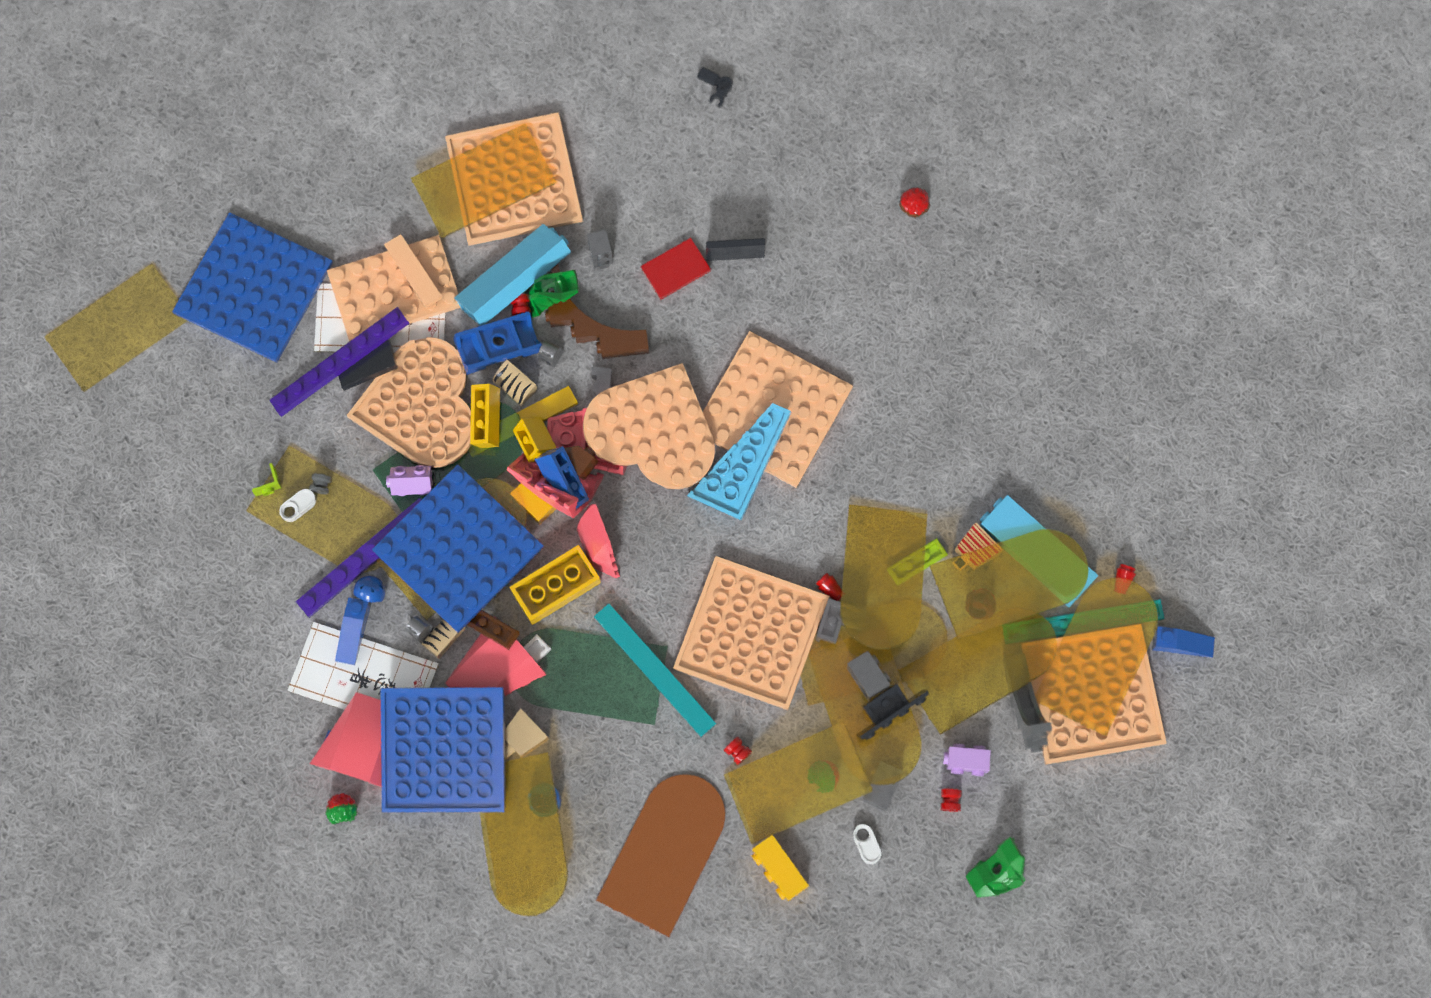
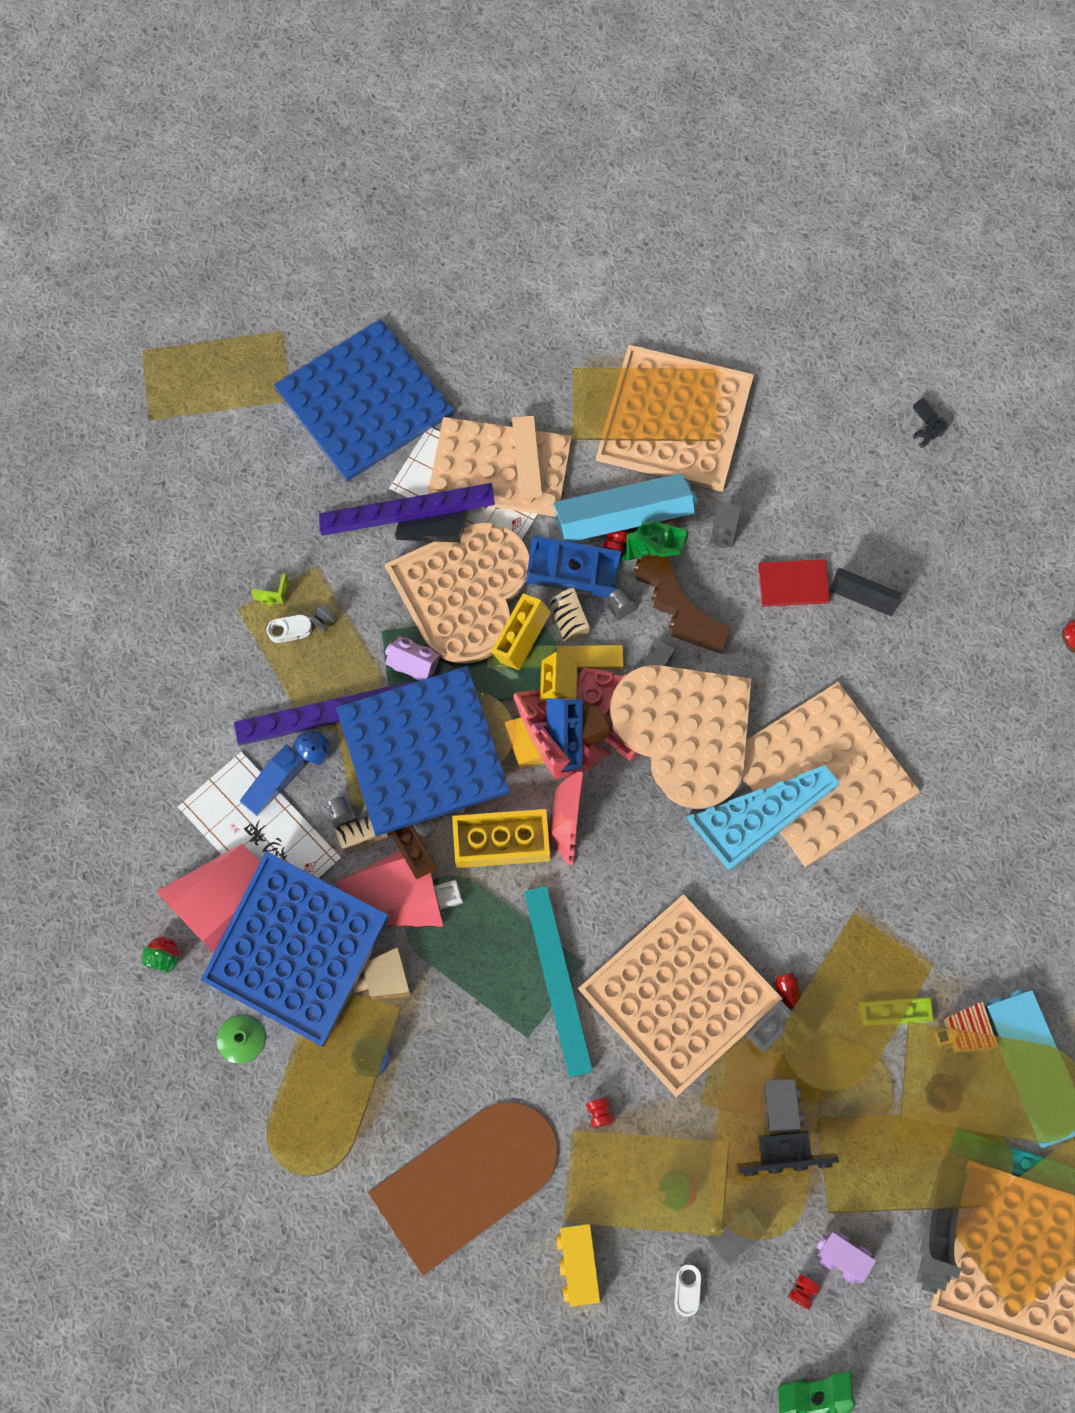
camera: 30 degrees right, 5 degrees down
(446, 845) = (250, 1046): none -> bright green dish

